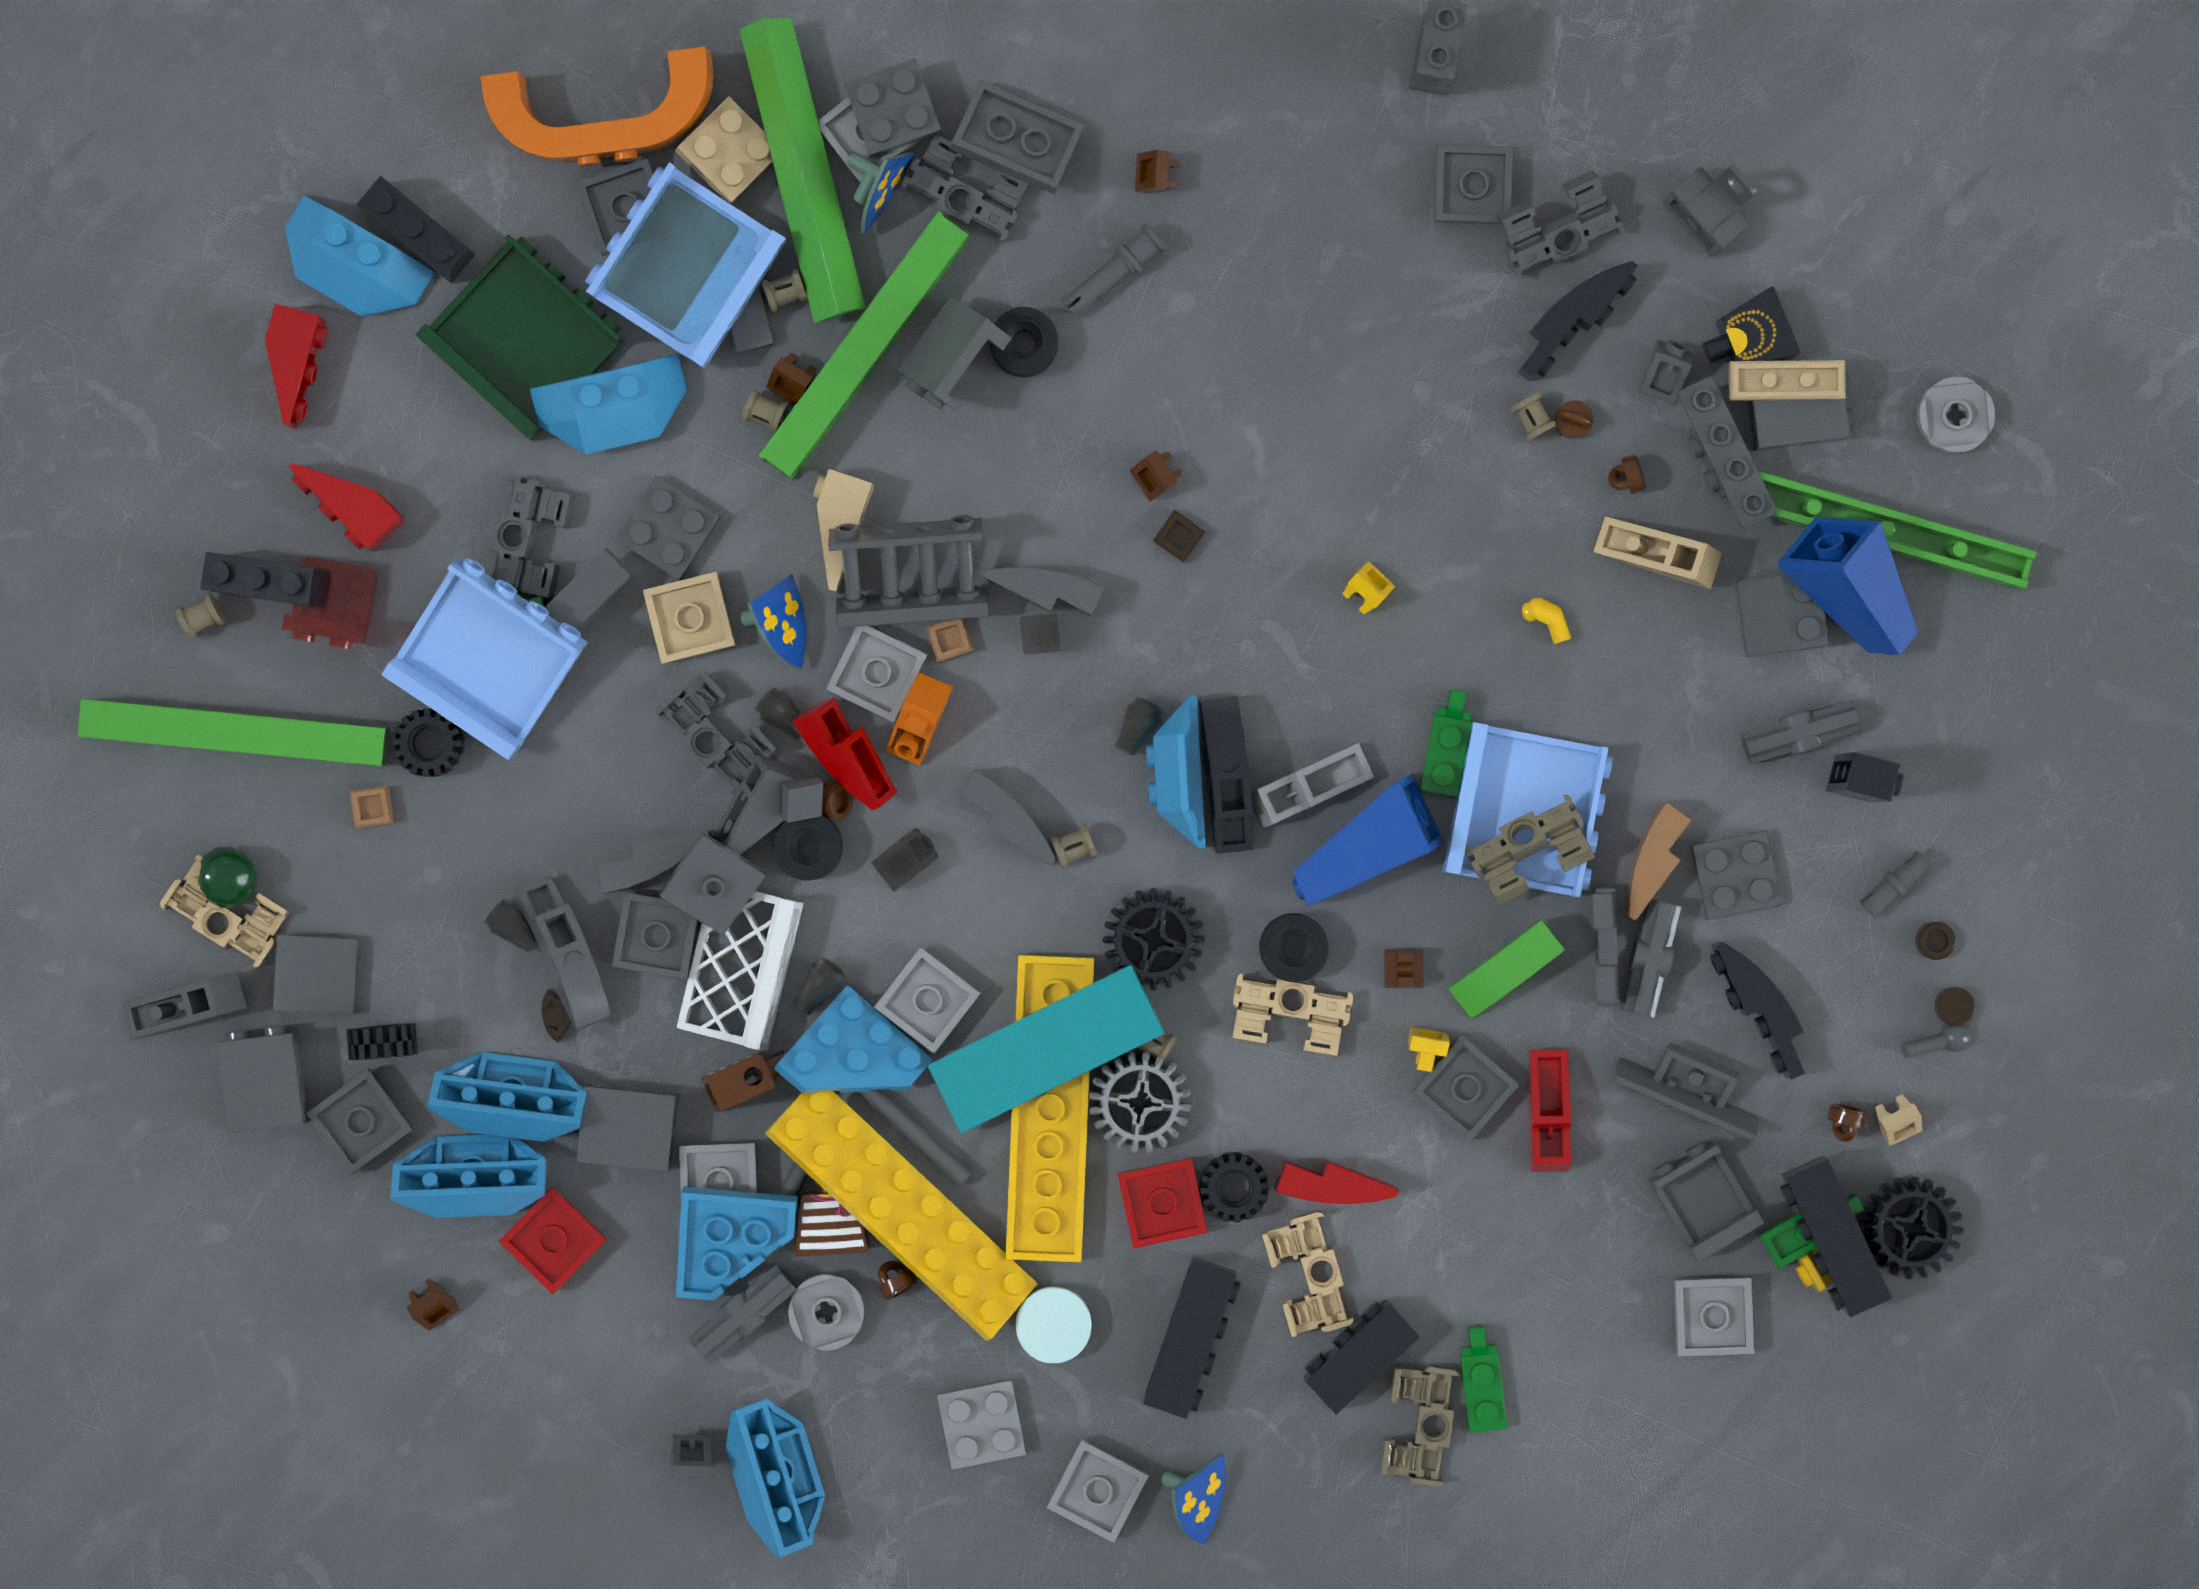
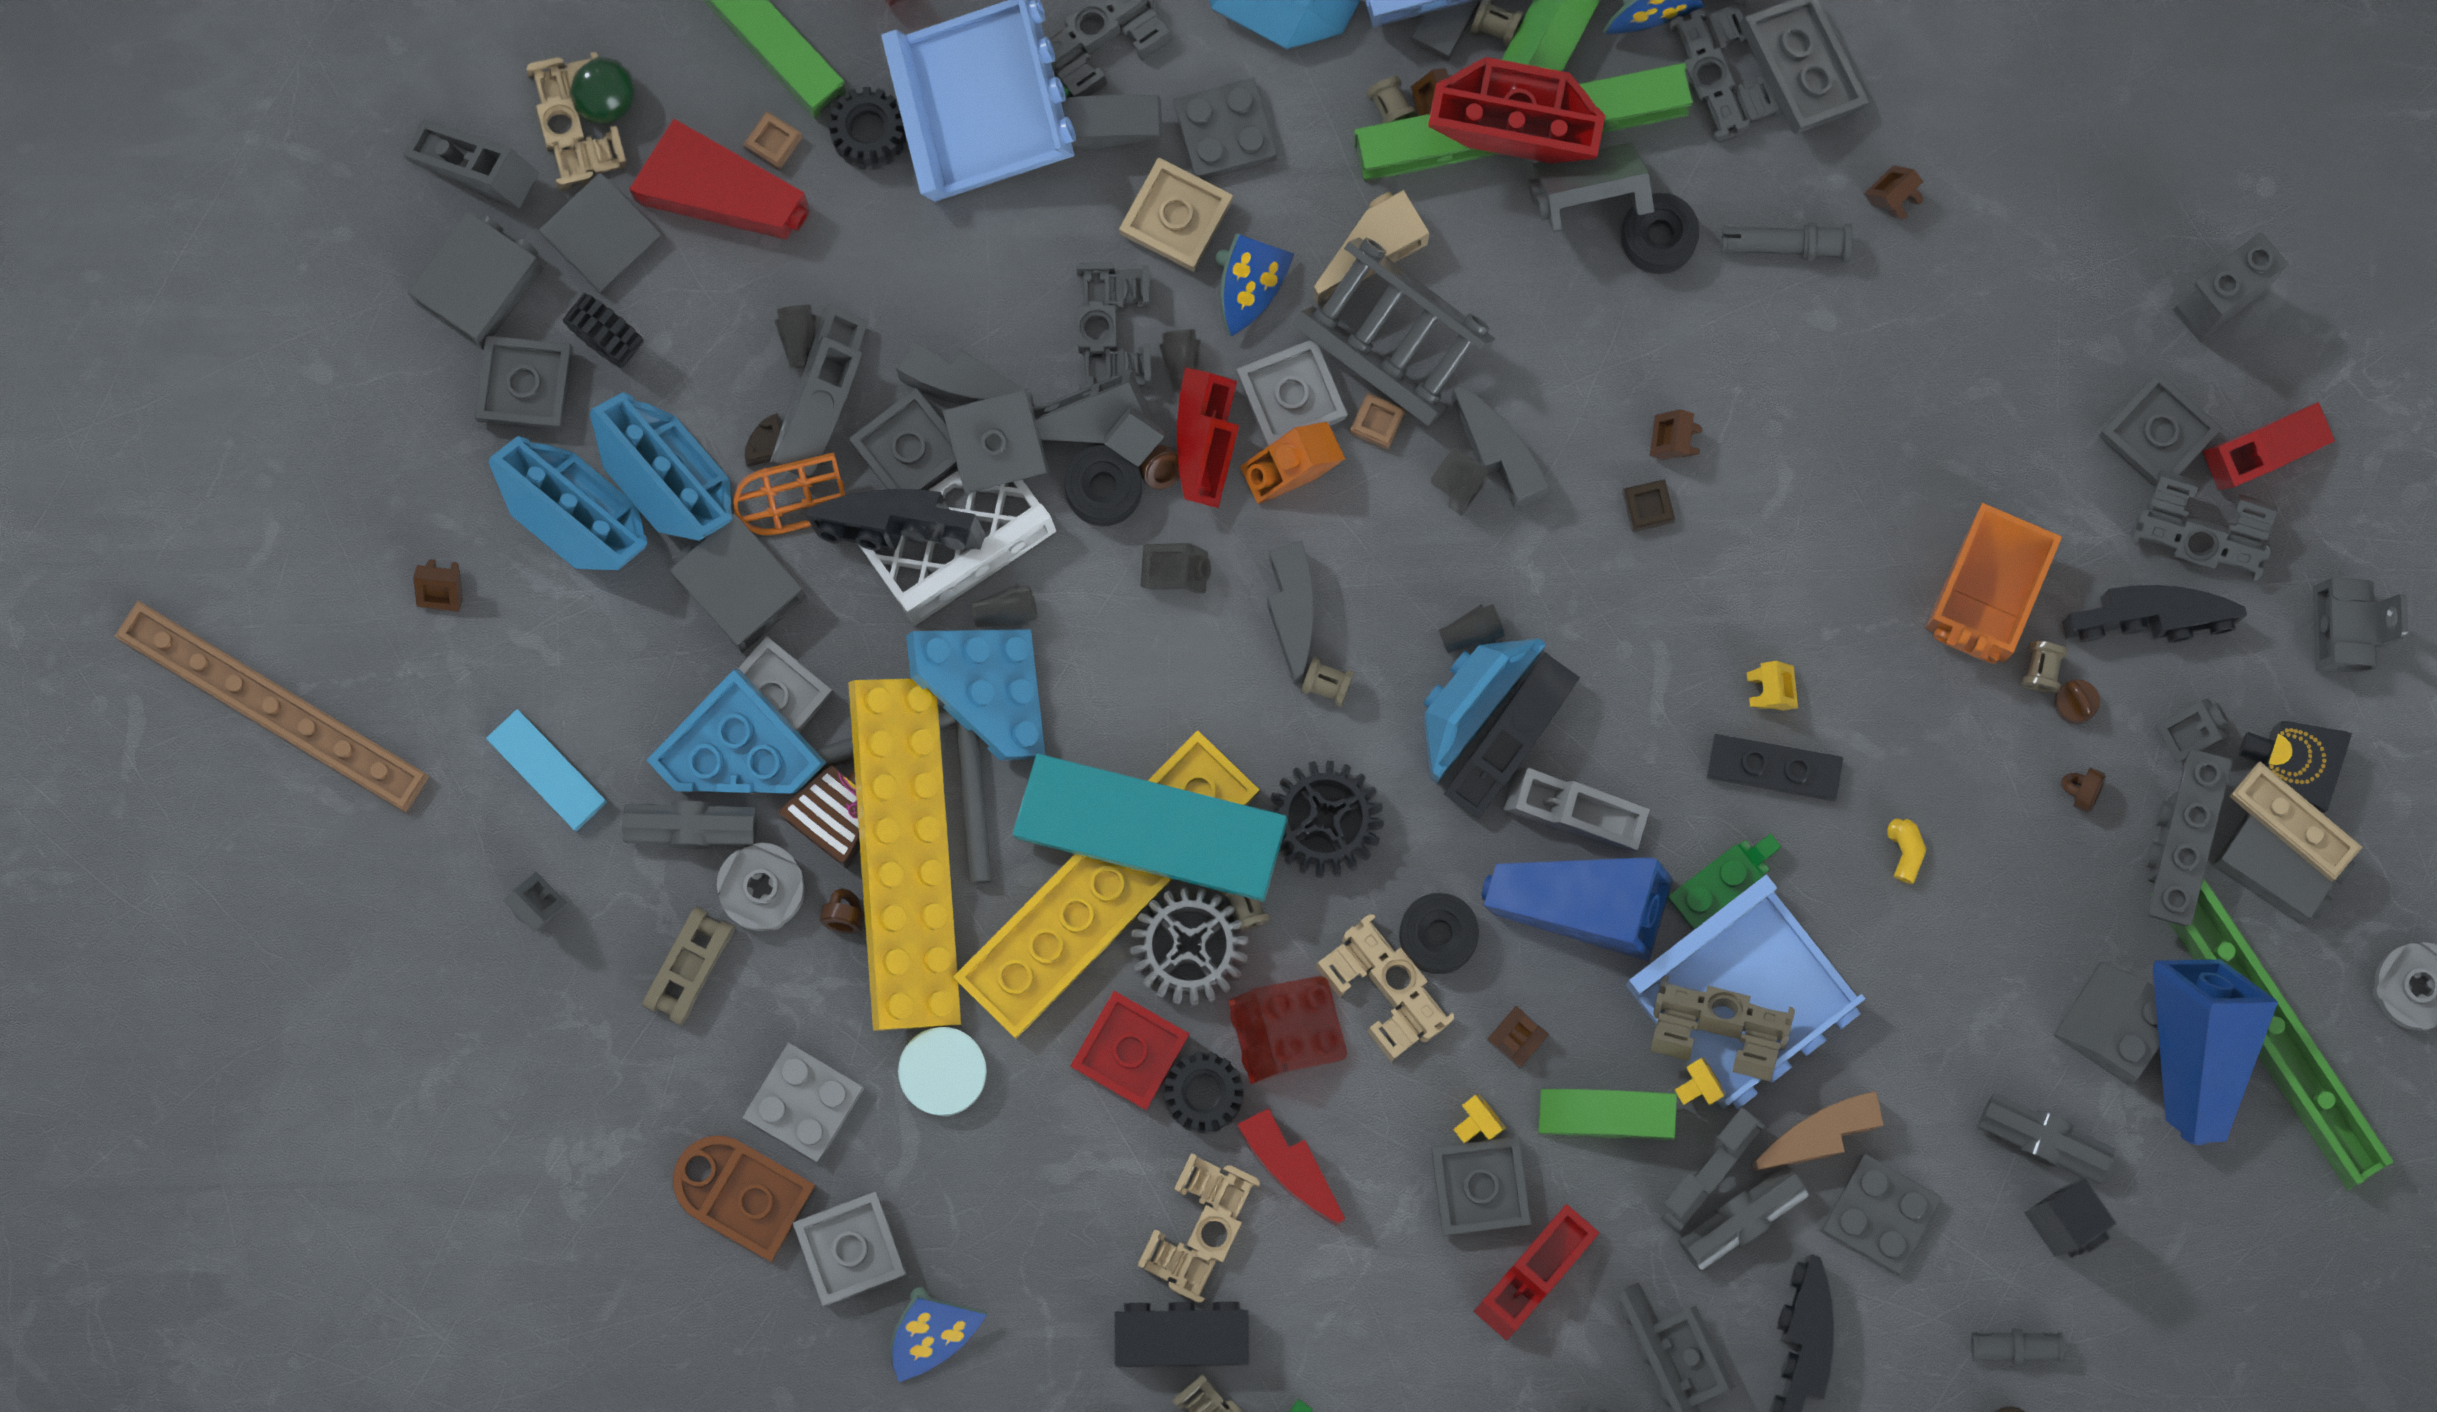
camera: 45 degrees right, 10 degrees down
(359, 874) = (716, 185): none -> red slope
(395, 1481) = (272, 706): none -> medium nougat tile
(552, 1240) = (589, 621): red plate -> none
(615, 1360) = (546, 770): none -> medium azure tile
(623, 1032) = (770, 492): none -> orange window
(686, 997) = (882, 516): none -> black slope
(728, 1087) = (854, 620): reddish brown torso -> none
(775, 1476) = (590, 982): dark azure wedge -> none
(826, 1403) = (688, 965): none -> dark tan plate
(860, 350) = (1518, 112): none -> red wedge
(927, 1000) = (1086, 701): light grey plate -> none
(998, 1515) = (744, 1194): none -> dark orange tile
(1190, 1337) = (1049, 1187): black brick -> none
(1251, 1097) = (1287, 1028): none -> clear red bracket
(1415, 640) = (1775, 767): none -> black plate
(1454, 393) = (1992, 585): none -> orange piece
(1550, 896) = (1703, 1082): none -> yellow tile
(1554, 133) = (2268, 447): none -> red slope
(1658, 552) = (2055, 876): tan slope -> none

